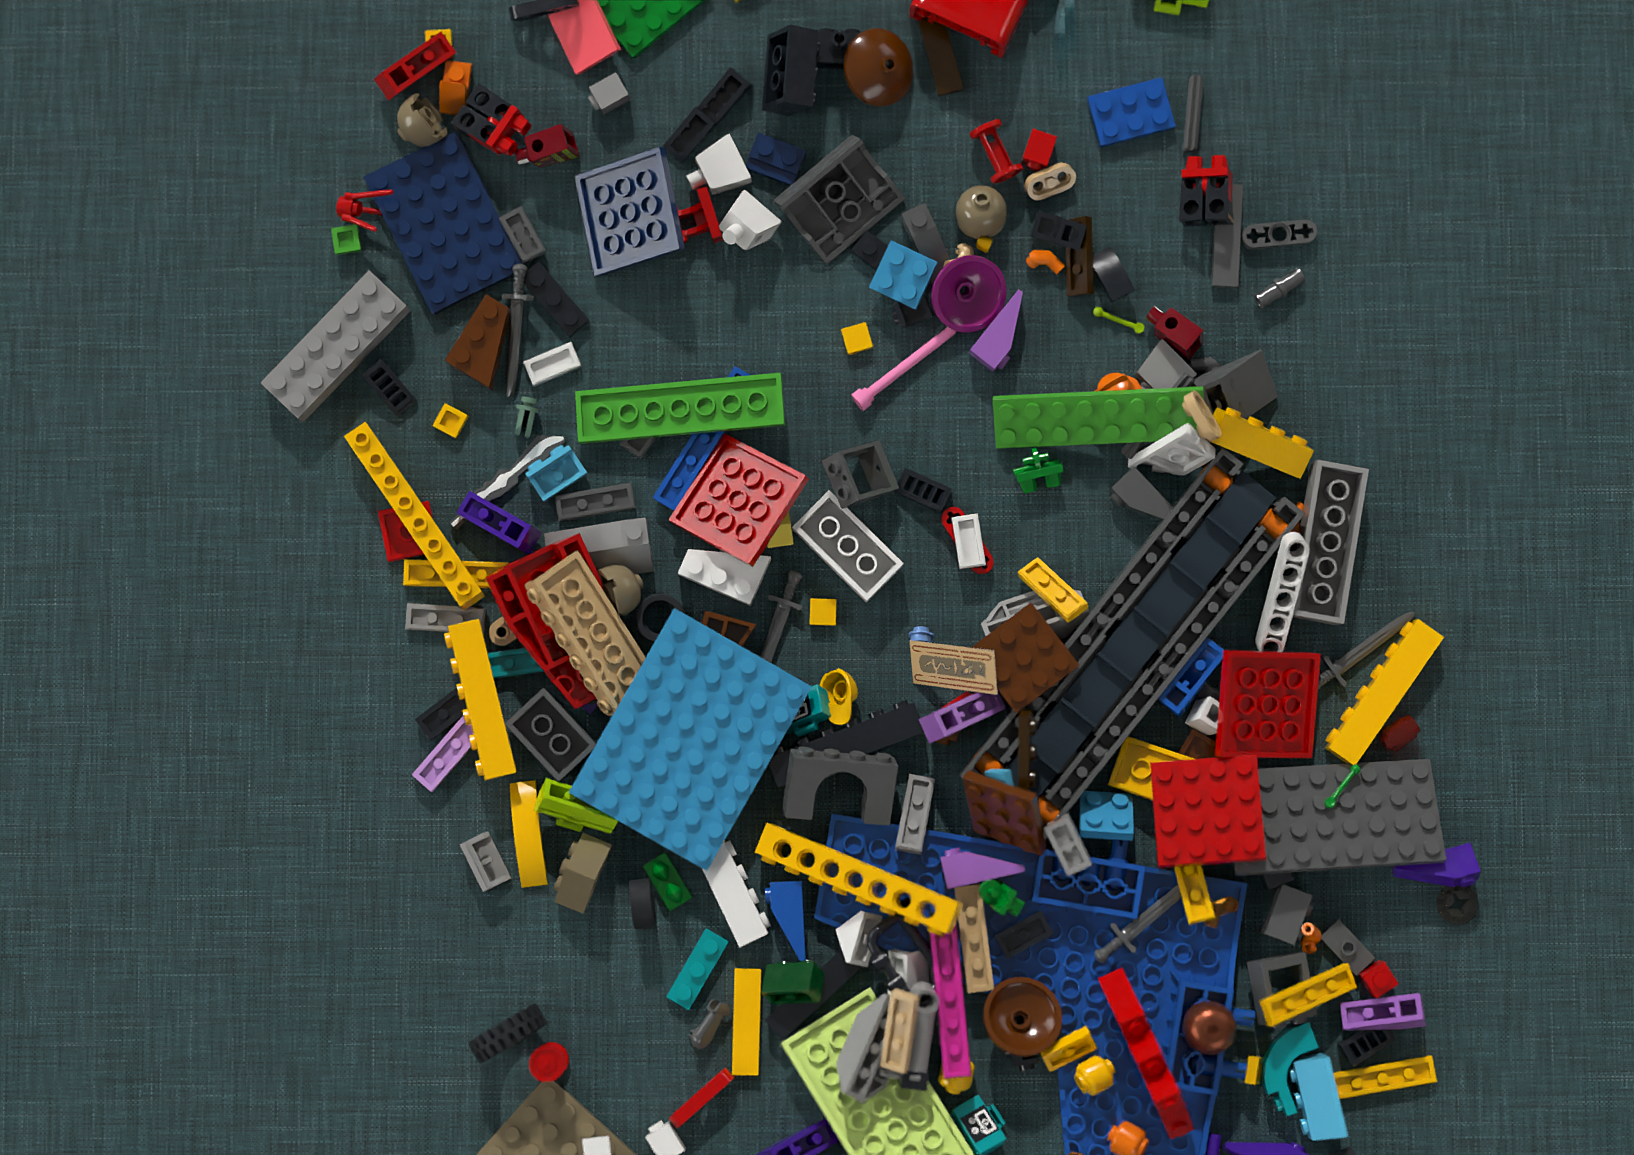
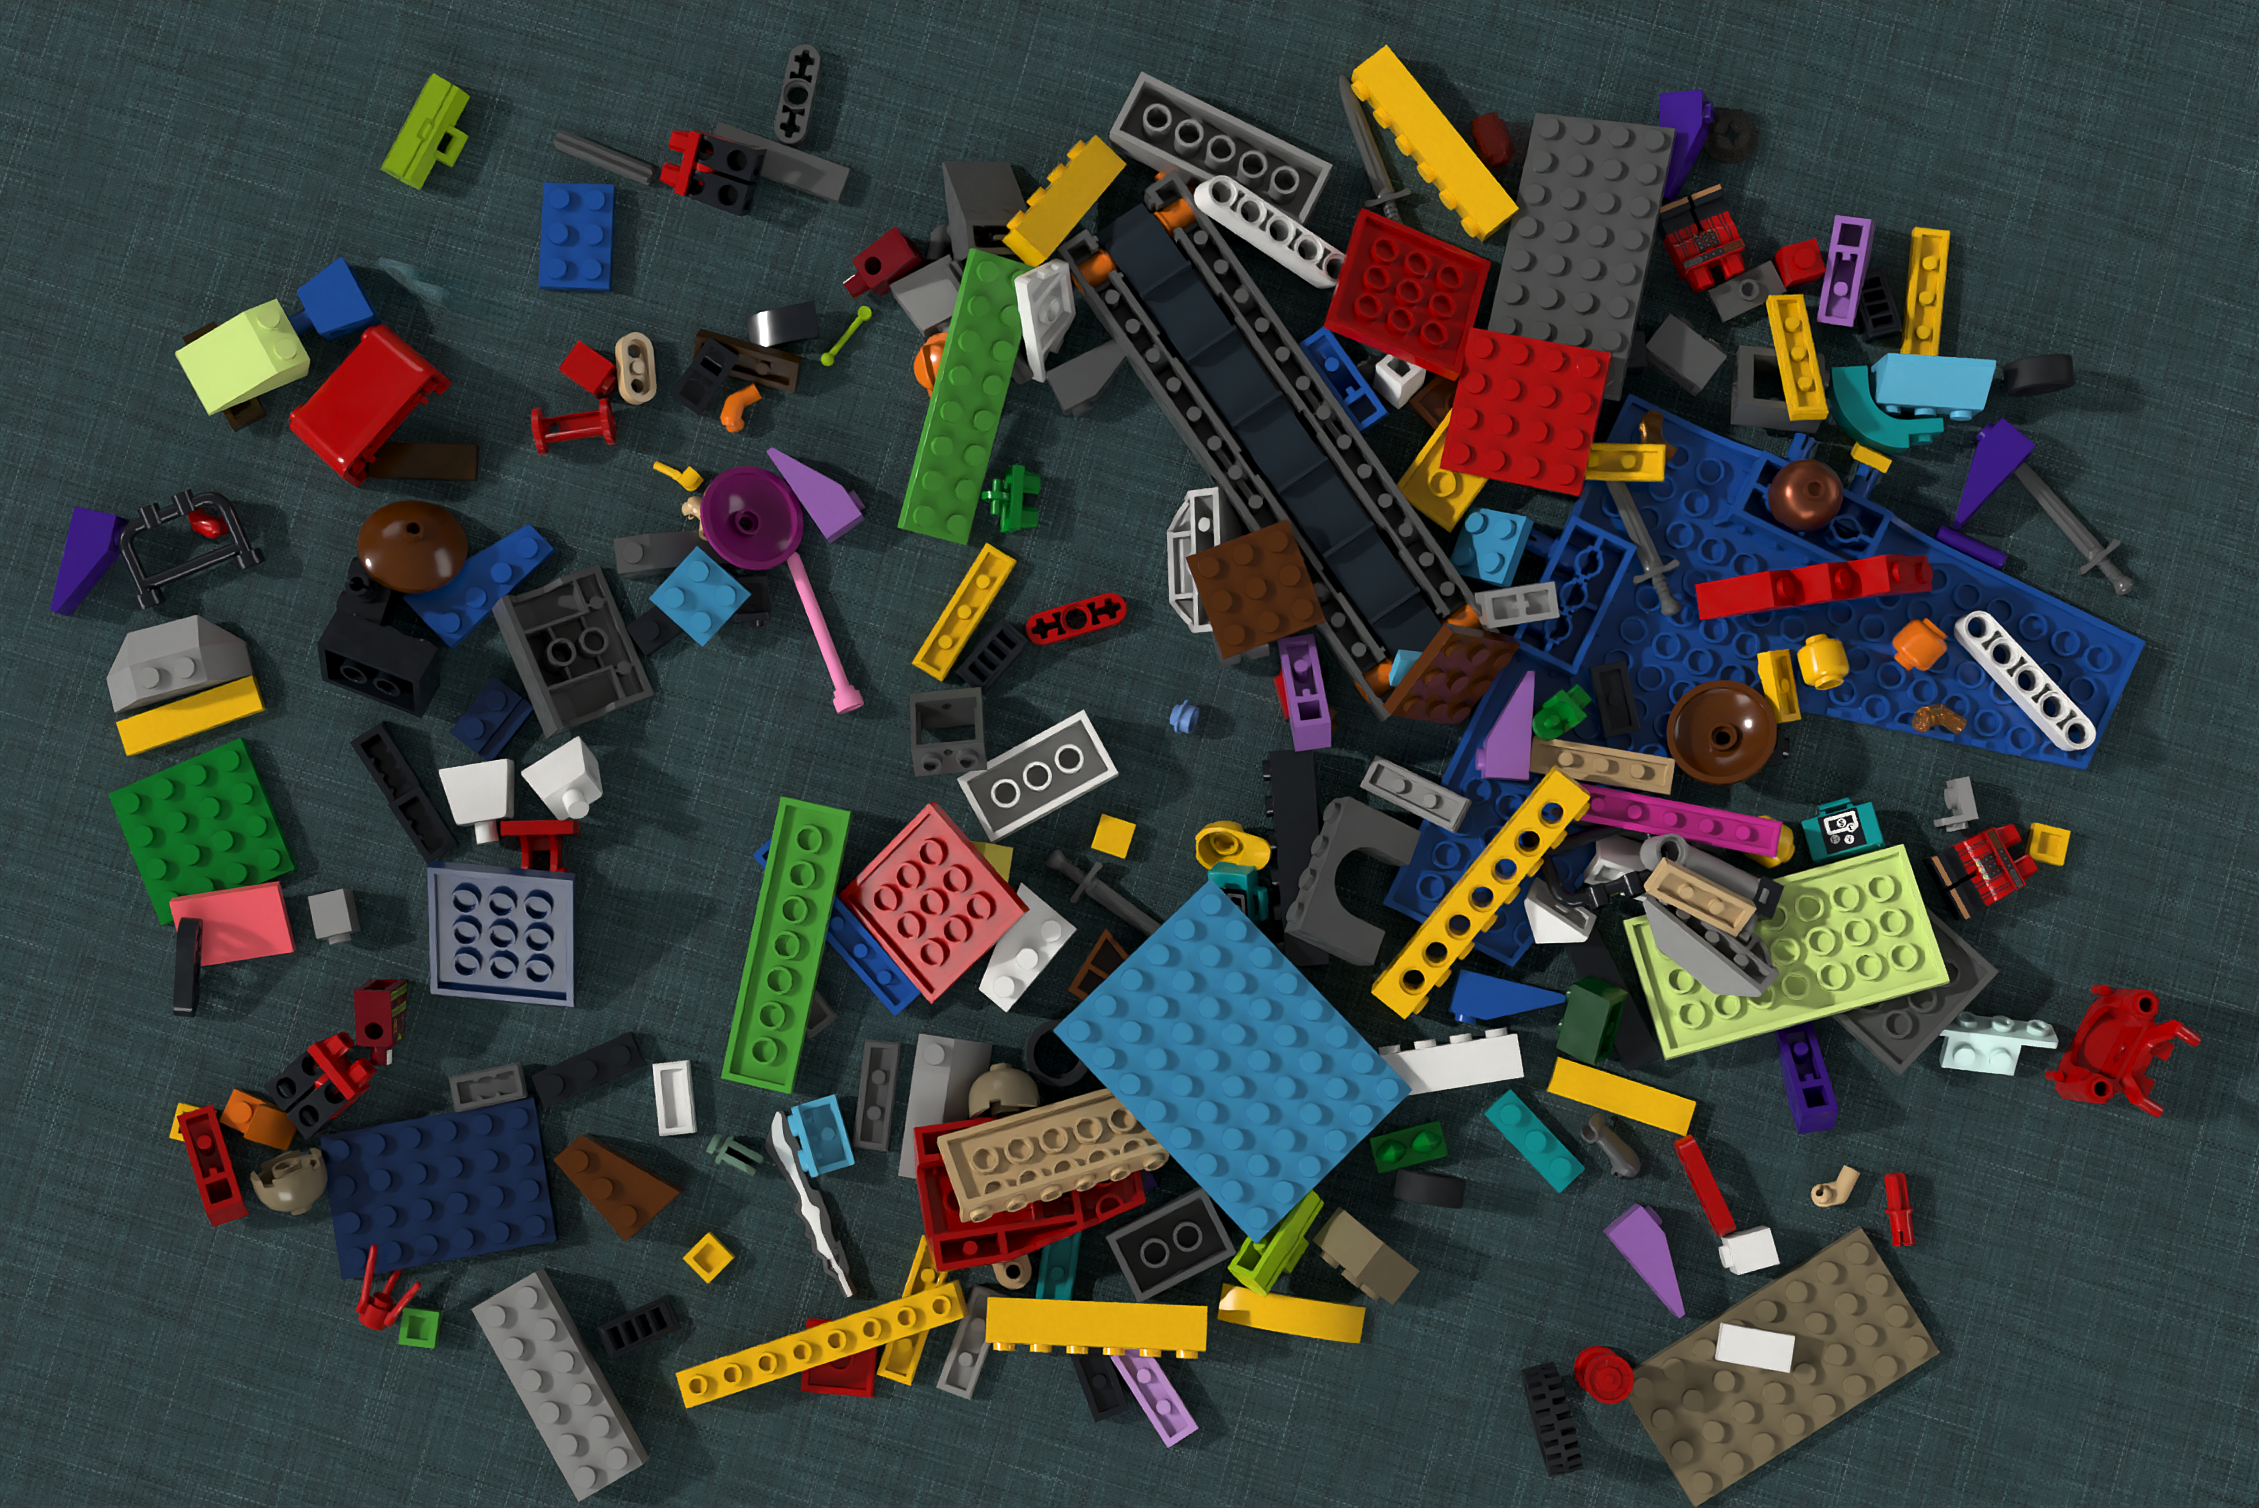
camera: 75 degrees left, 0 degrees up
(485, 861) = (1312, 1381): light grey hinge -> none
(499, 522) = (866, 1231): dark purple slope -> none
(517, 300) = (575, 1120): dark grey sword -> none
(645, 1068) = (1646, 1249): none -> medium lavender slope
(856, 338) = (765, 684): yellow tile -> none
(866, 122) = (485, 578): none -> blue wing
(948, 461) = (964, 612): none -> yellow tile
(953, 667) = (1239, 685): sticker -> none
(968, 541) = (1078, 617): white tile -> none
(981, 212) = (648, 470): dark tan cylinder -> none
(1026, 751) = (1380, 621): dark brown plate -> none
(1053, 590) = (1176, 526): yellow tile -> none
(1206, 423) = (1023, 256): tan plate -> none
(1279, 288) = (869, 116): dark grey pin -> none
(1310, 938) = (1721, 332): orange arm -> none
(1330, 801) = (1558, 252): green hinge -> none
(1373, 912) = (1701, 236): none -> hips

